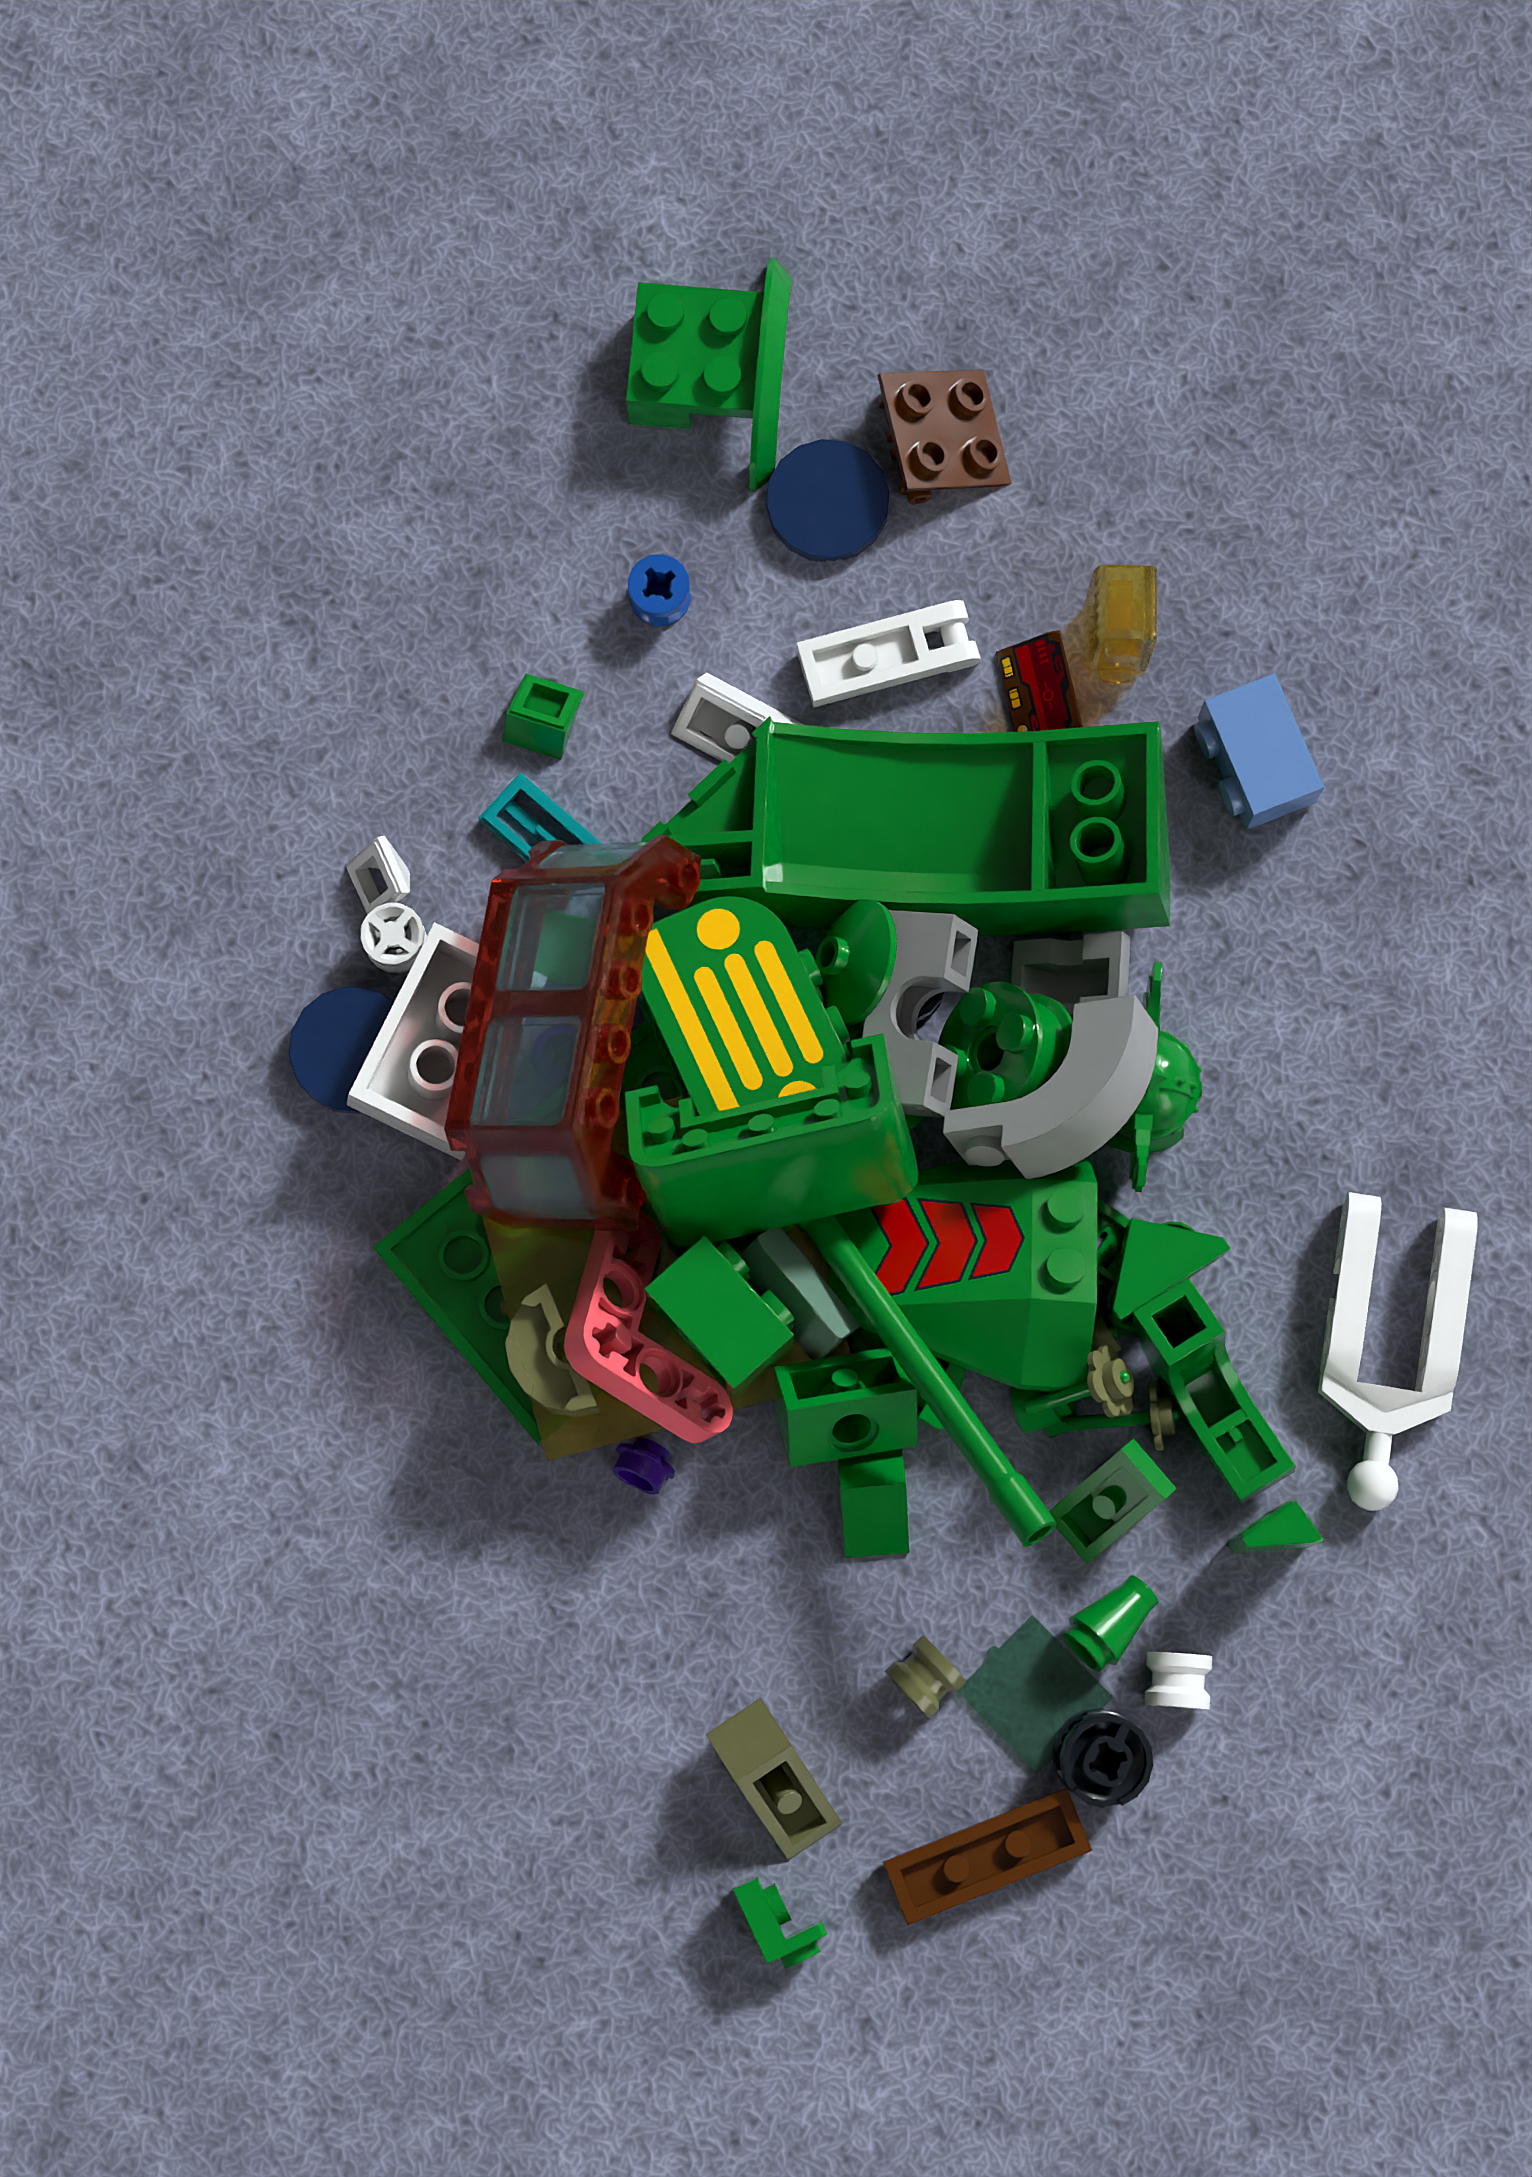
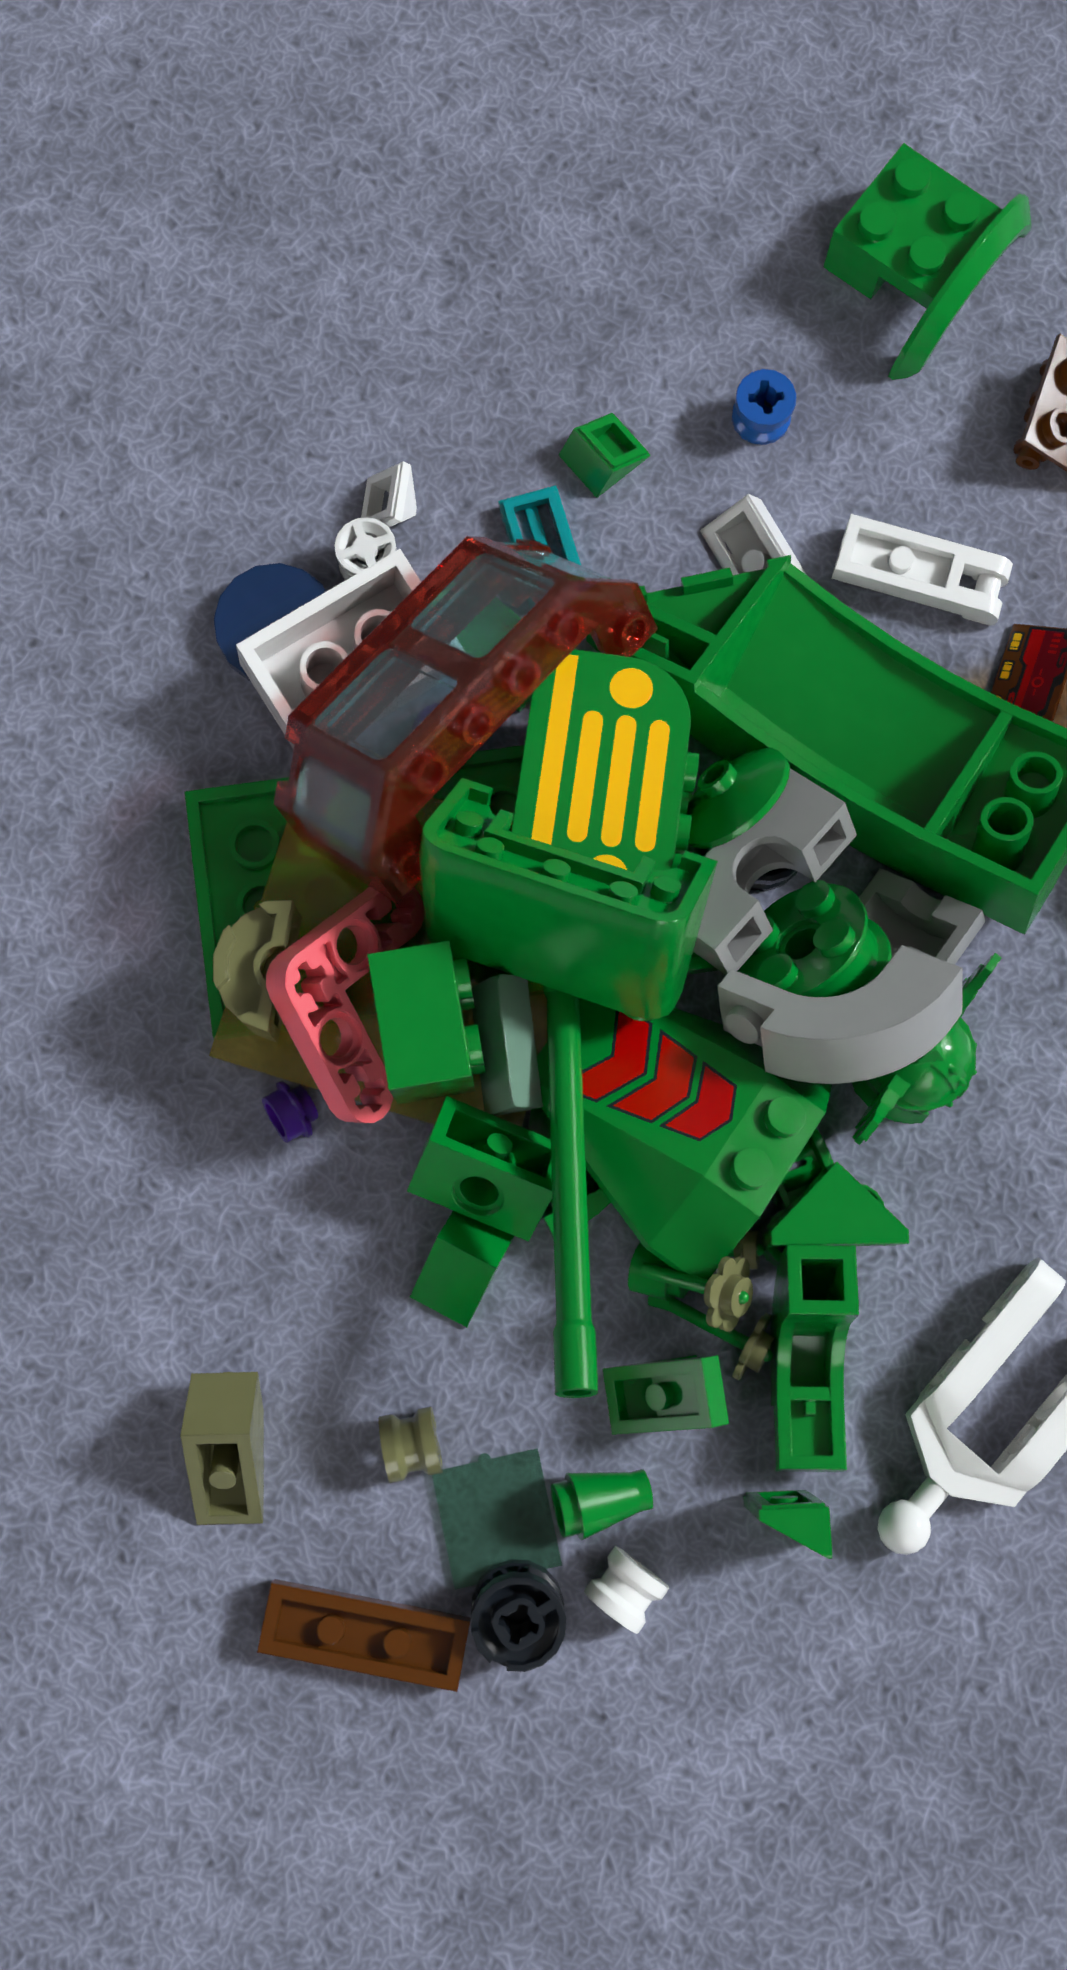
camera: 30 degrees right, 0 degrees up
(766, 1914) = (141, 1561): green bracket -> none
(827, 500) = (949, 419): dark blue tile -> none

